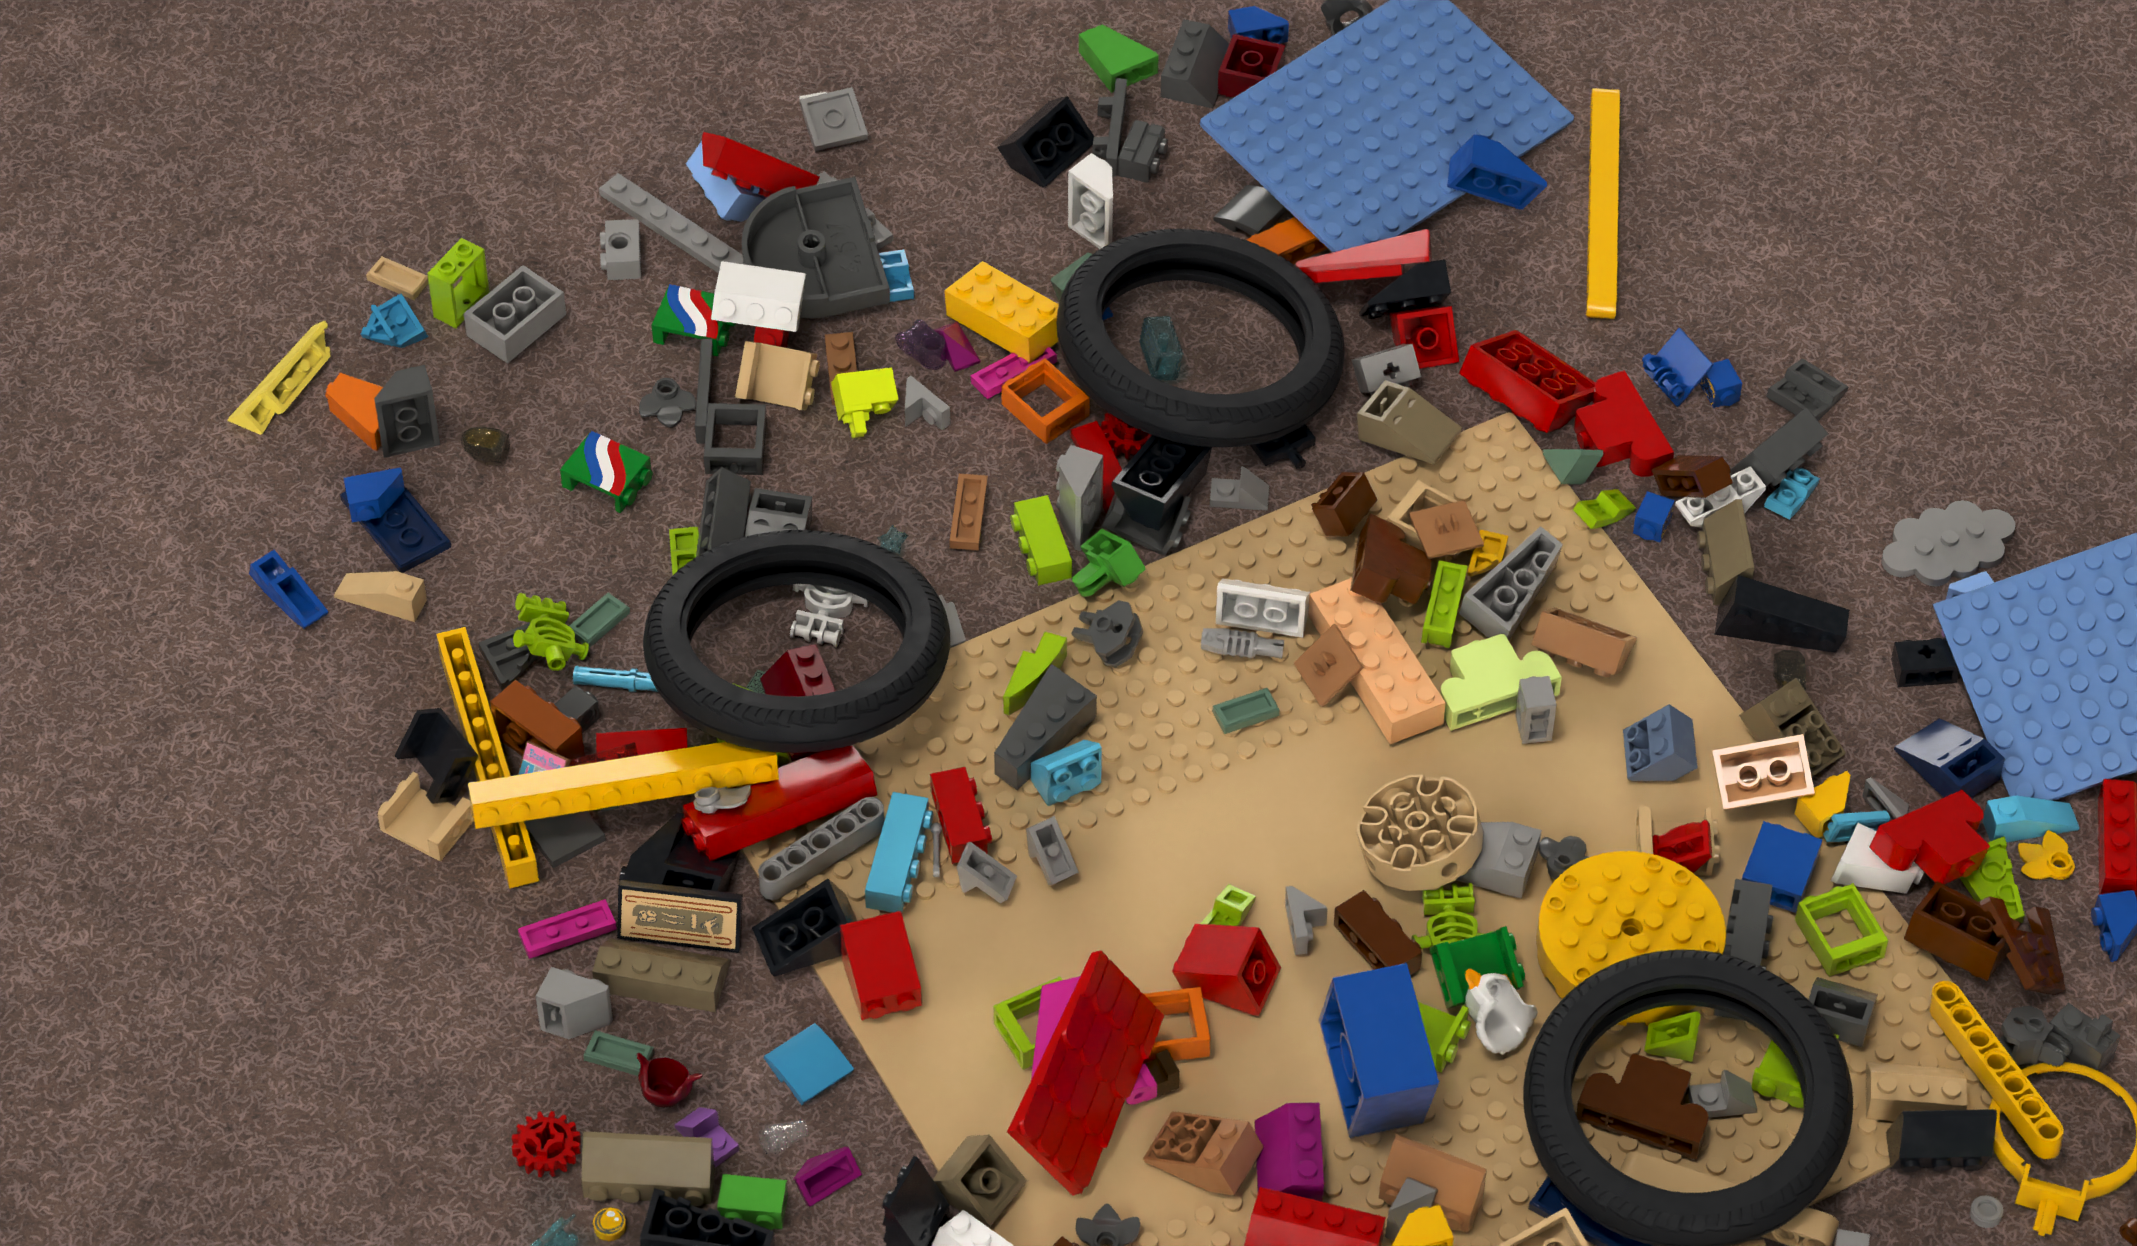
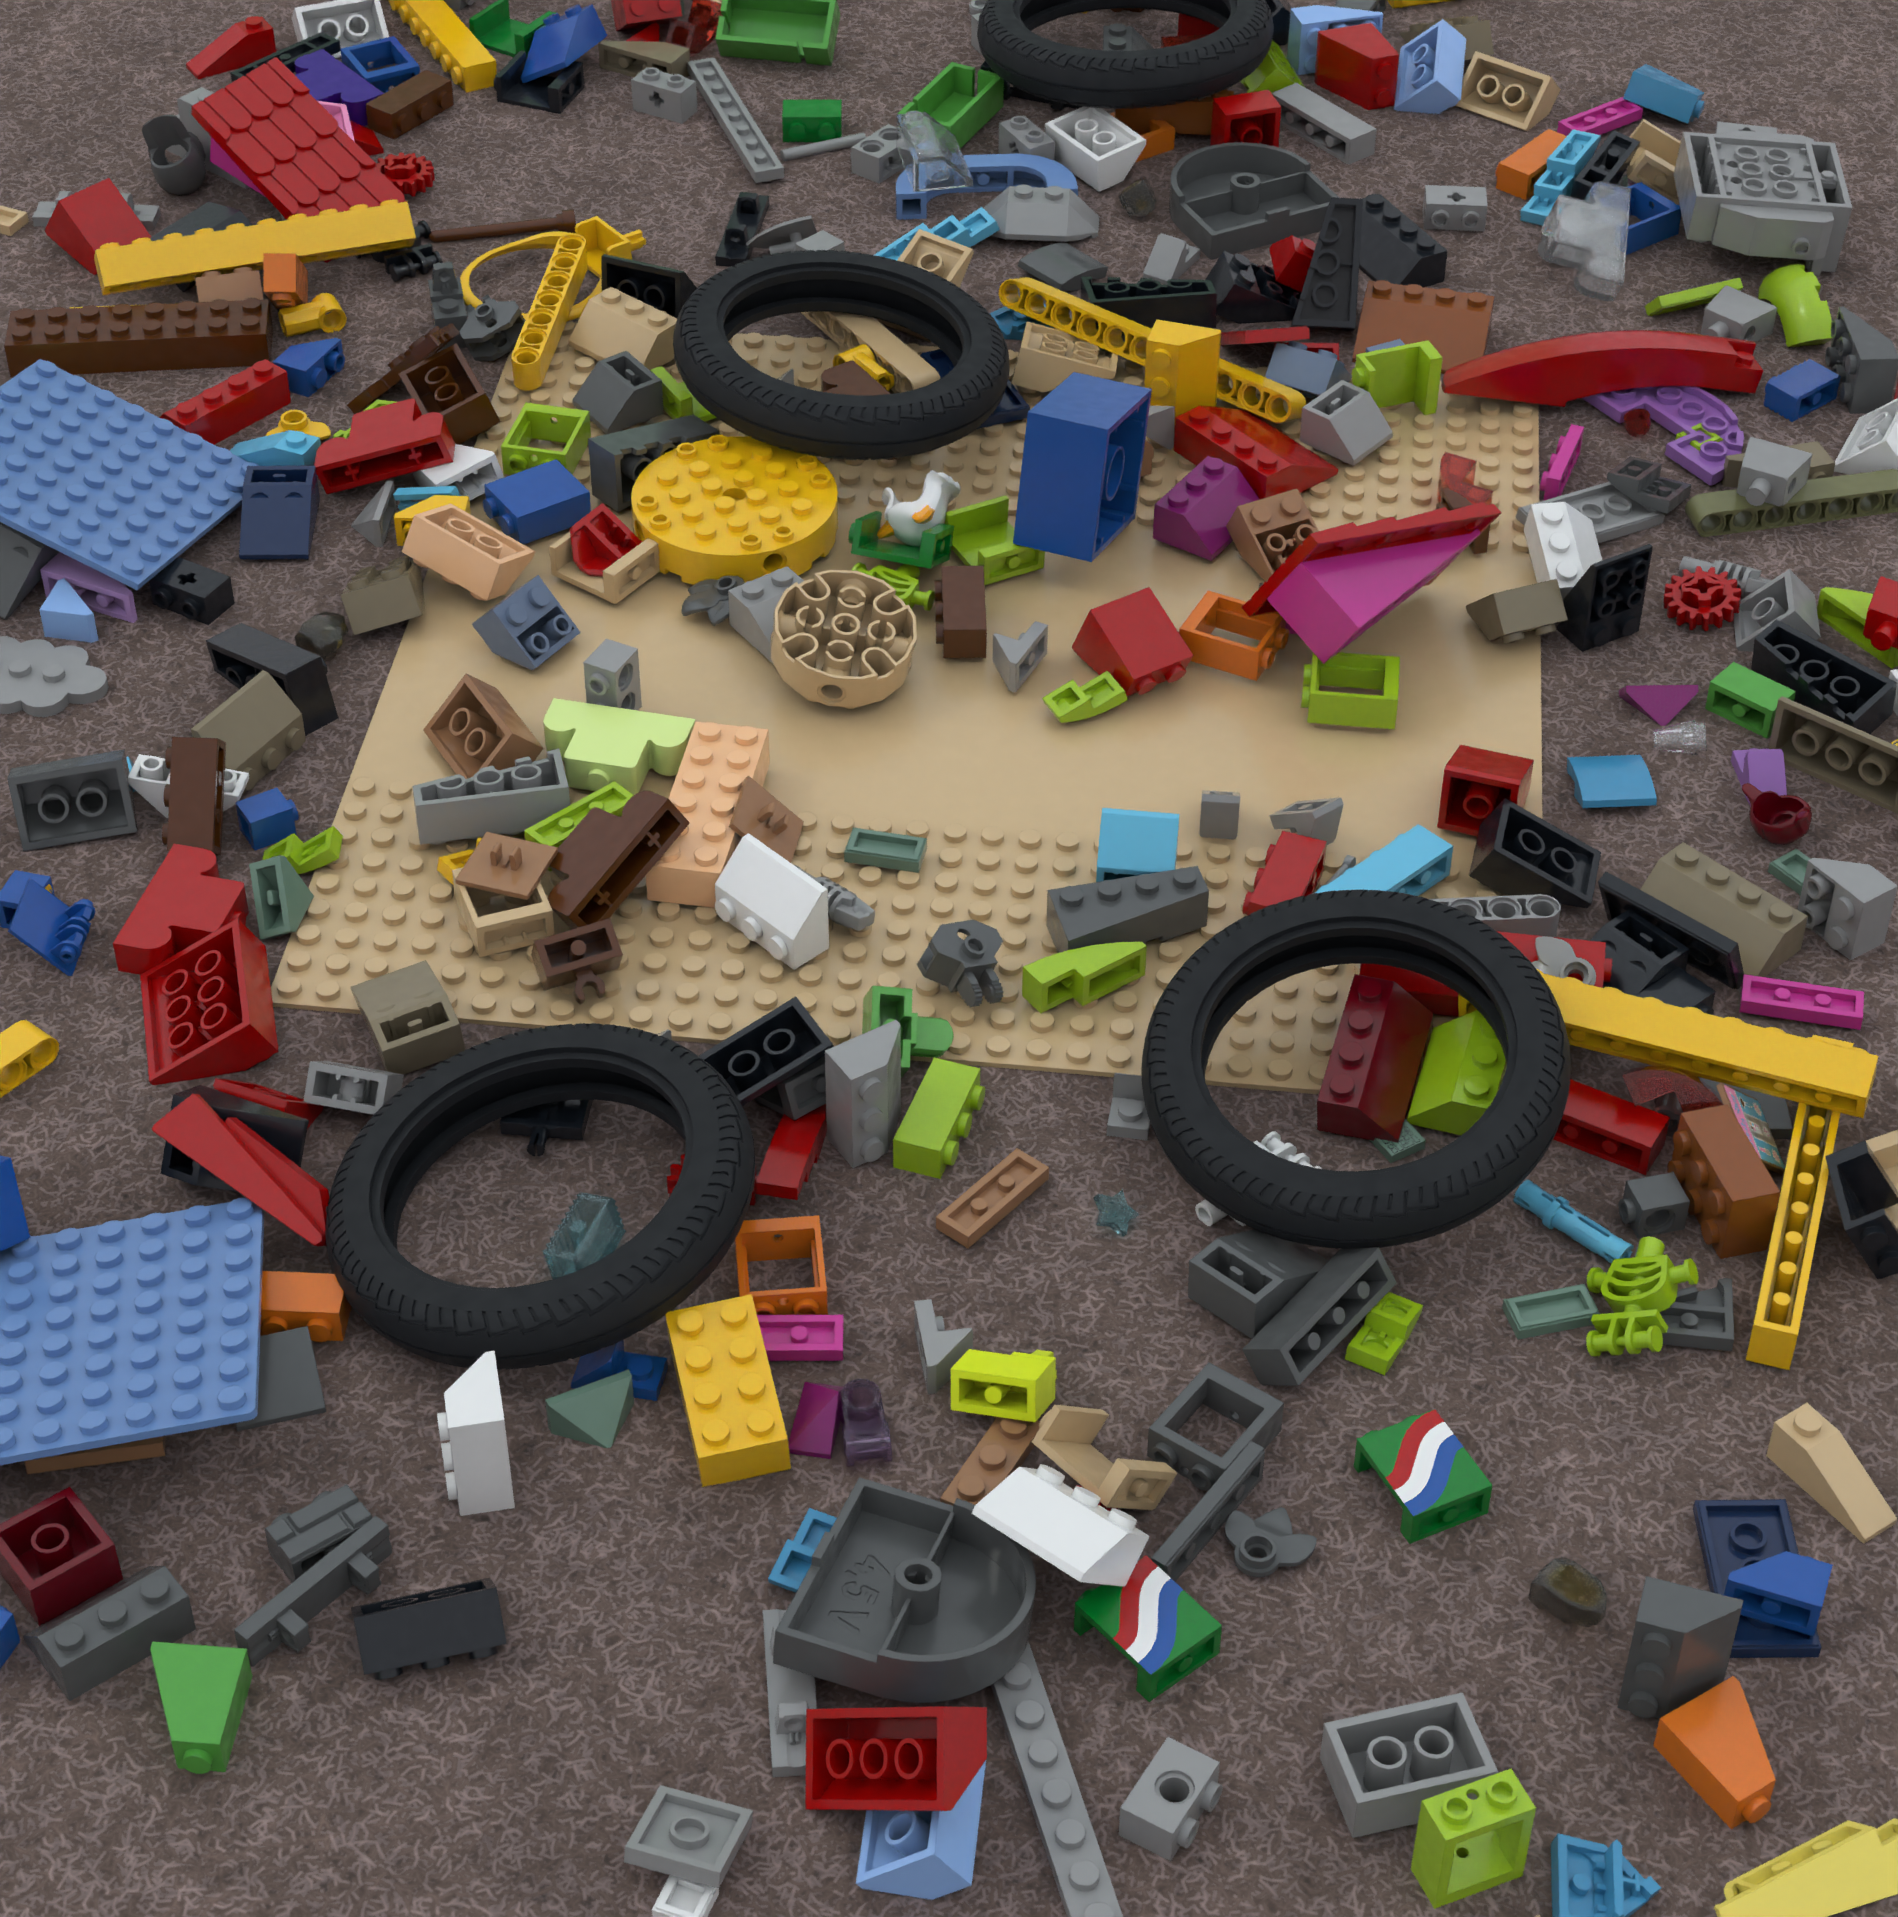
camera: 145 degrees left, 10 degrees down
(1708, 1160) = (865, 359): none -> yellow piece

